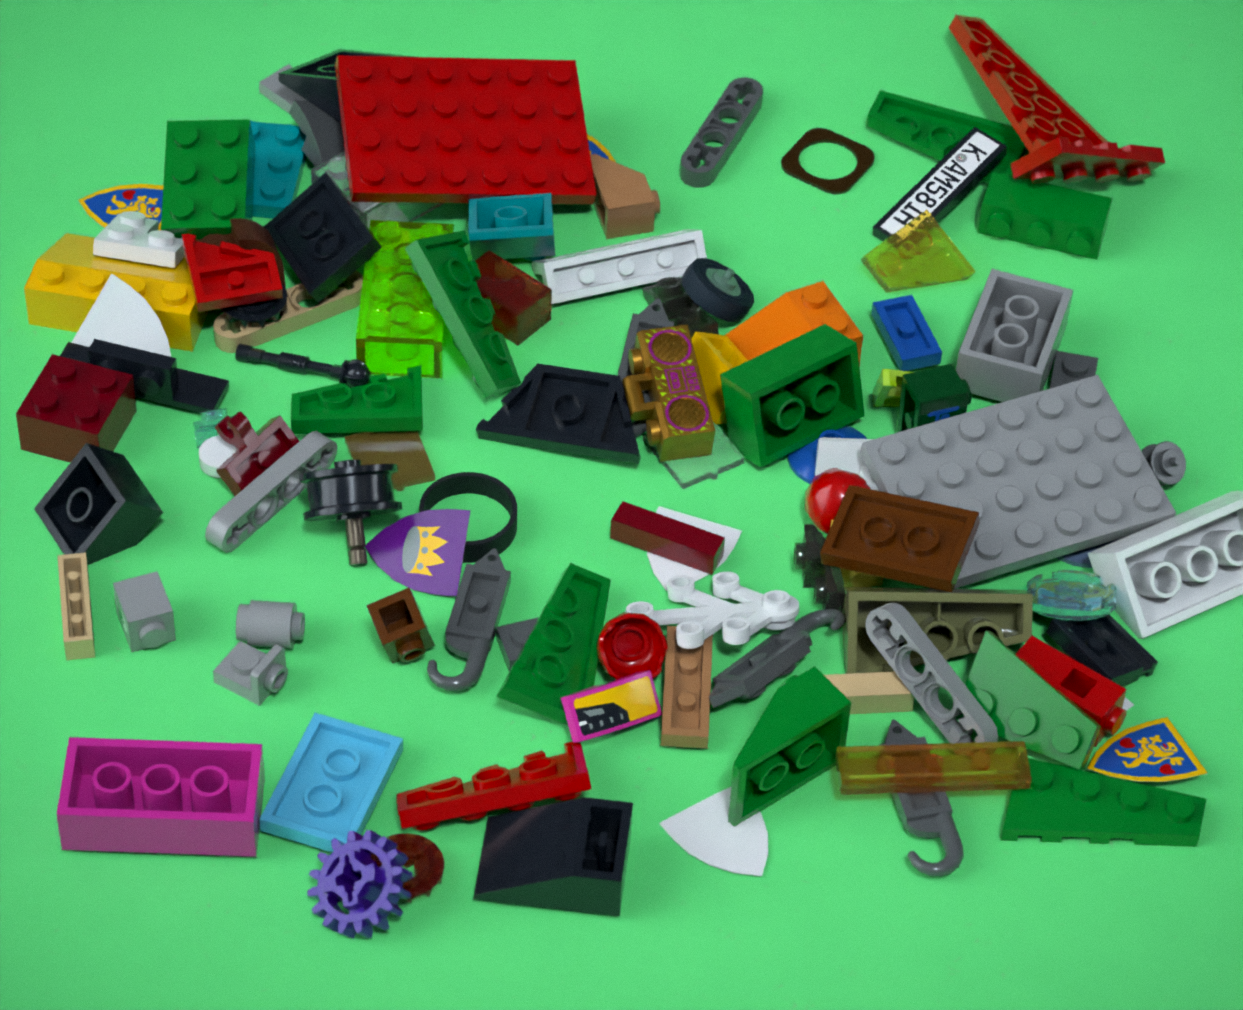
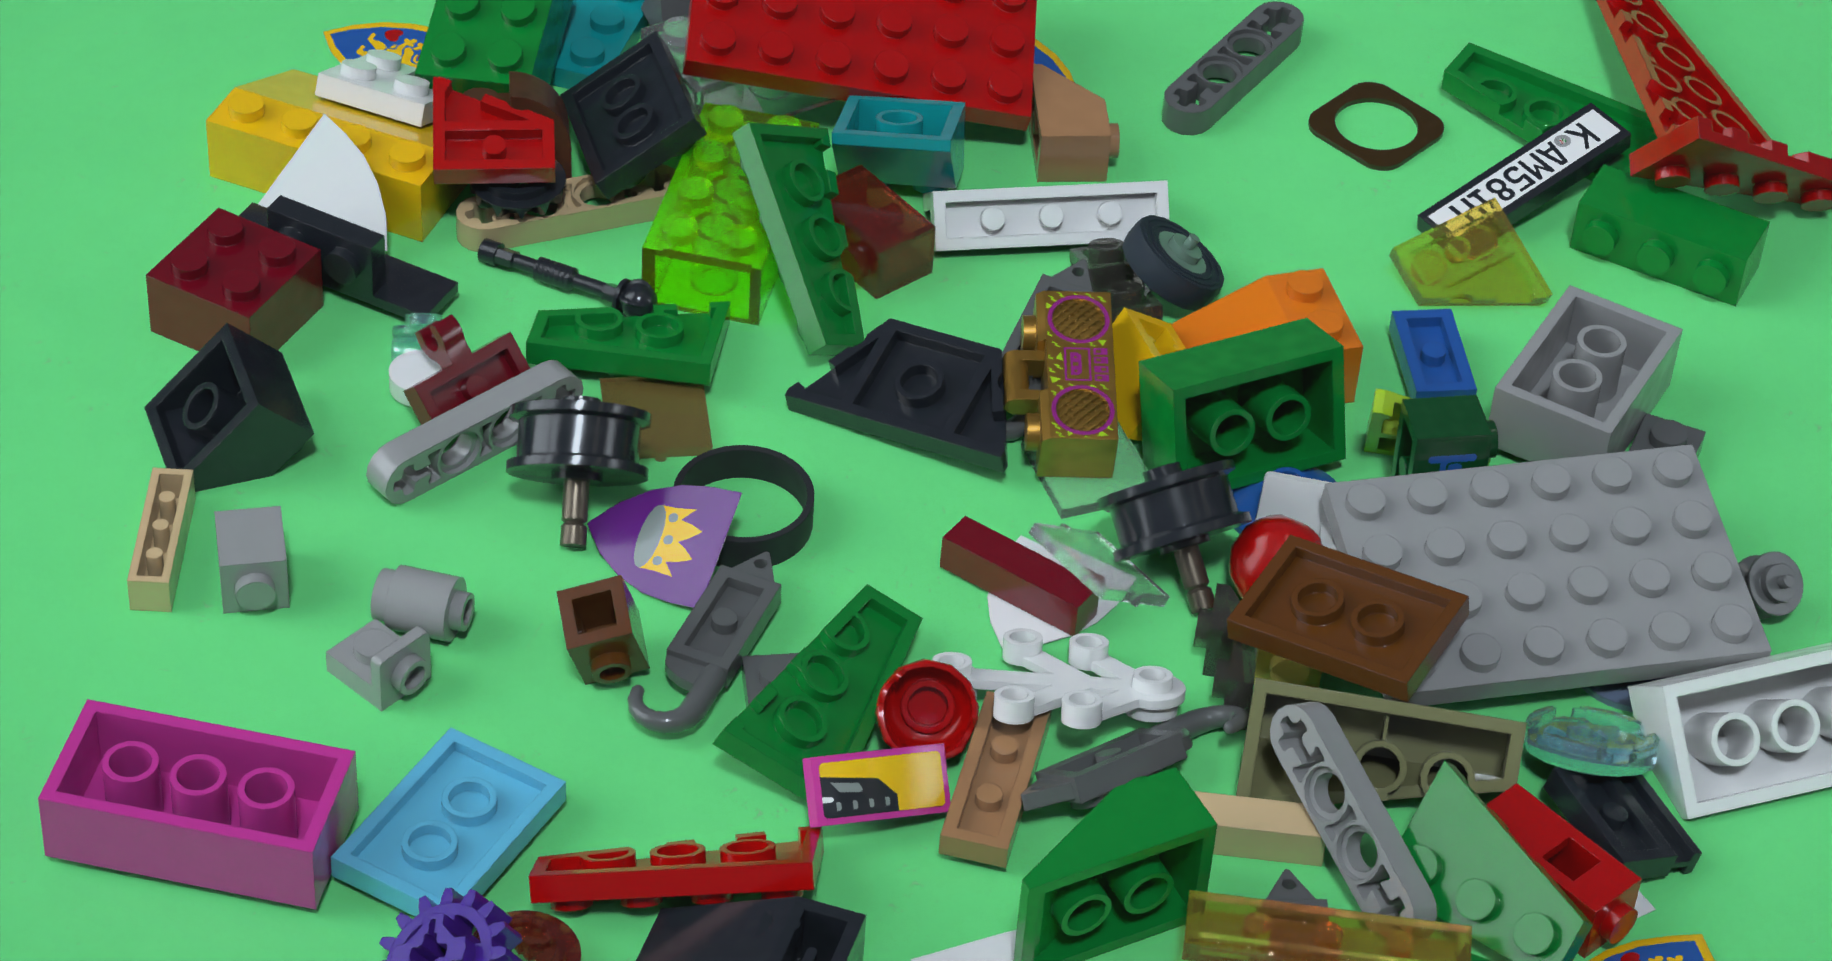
camera: 10 degrees right, 5 degrees down
(719, 521) = (1091, 560): none -> clear piece
(765, 480) = (1175, 515): none -> black wheel

